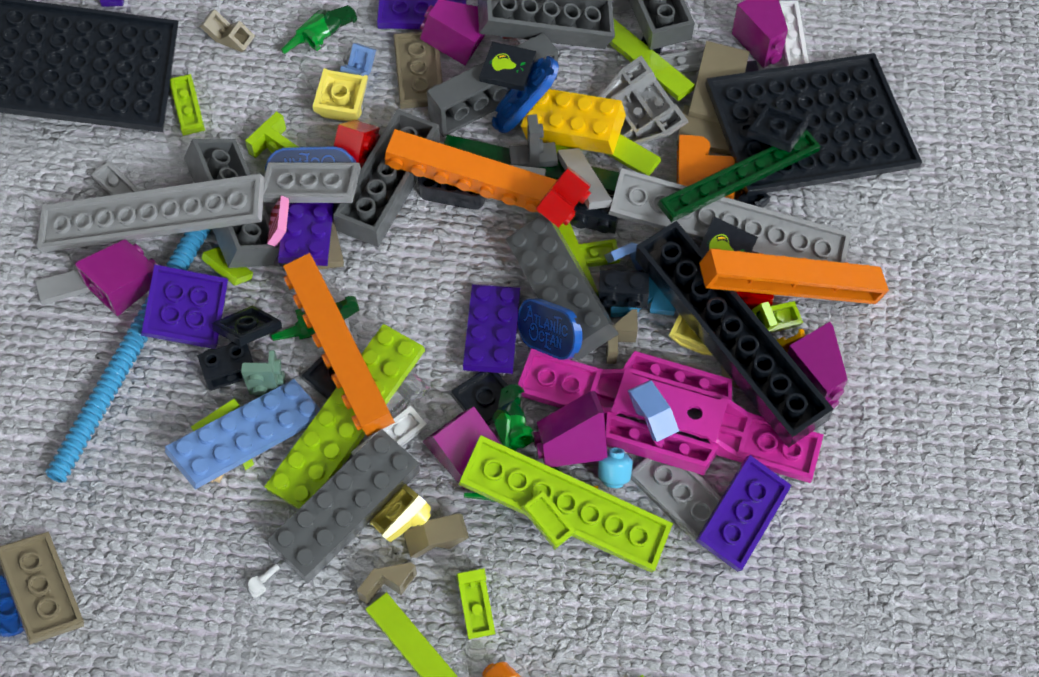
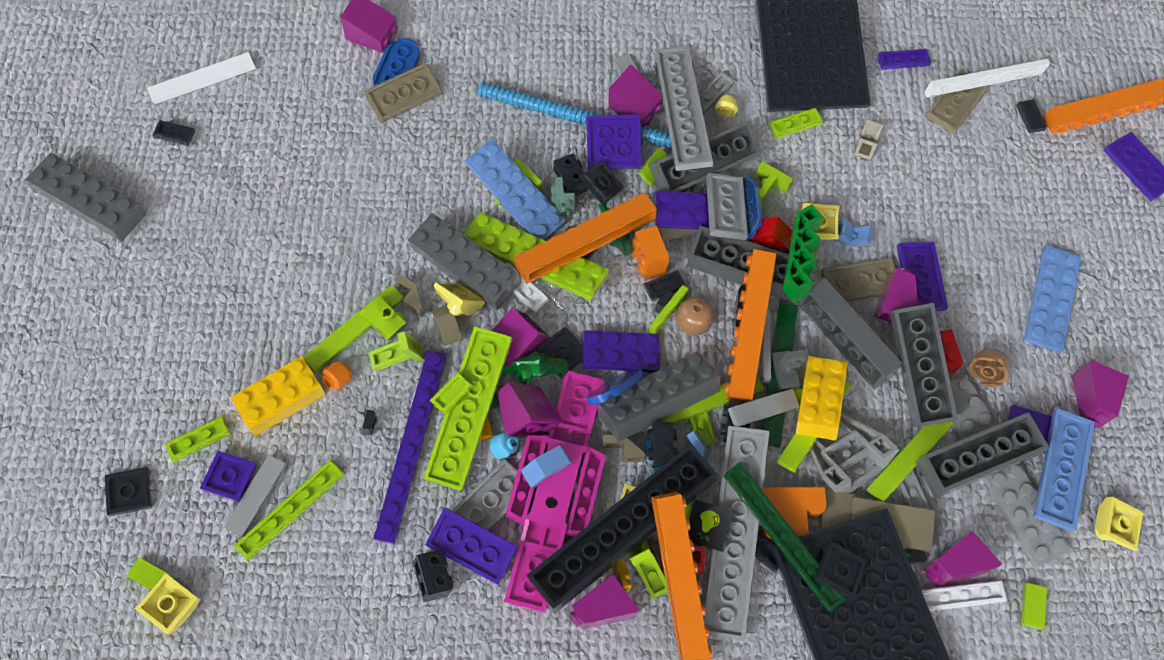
camera: 80 degrees right, 5 degrees up
(149, 172) = (726, 106): none -> light yellow cone
(256, 583) = (408, 216): white hand -> none
(278, 221) = (688, 188): bright pink tile -> none
(321, 26) = (885, 202): green animal -> none
(363, 276) = (650, 253): none -> orange brick
(399, 111) = (800, 258): none -> green brick
(404, 272) = (659, 286): none -> black plate
(420, 615) = (383, 317): none -> lime brick
(429, 273) = (663, 301): none -> black tile
(441, 270) = (668, 310): none -> lime tile
(450, 243) = (694, 316): none -> medium nougat cylinder
(507, 66) = (858, 335): black tile -> none
(518, 103) = (839, 355): blue tile -> none
(563, 196) = (728, 383): red brick -> none
(573, 638) = (369, 422): none -> black tile
(605, 588) = (410, 448): none -> dark purple plate
(783, 559) = (432, 575): none -> black brick

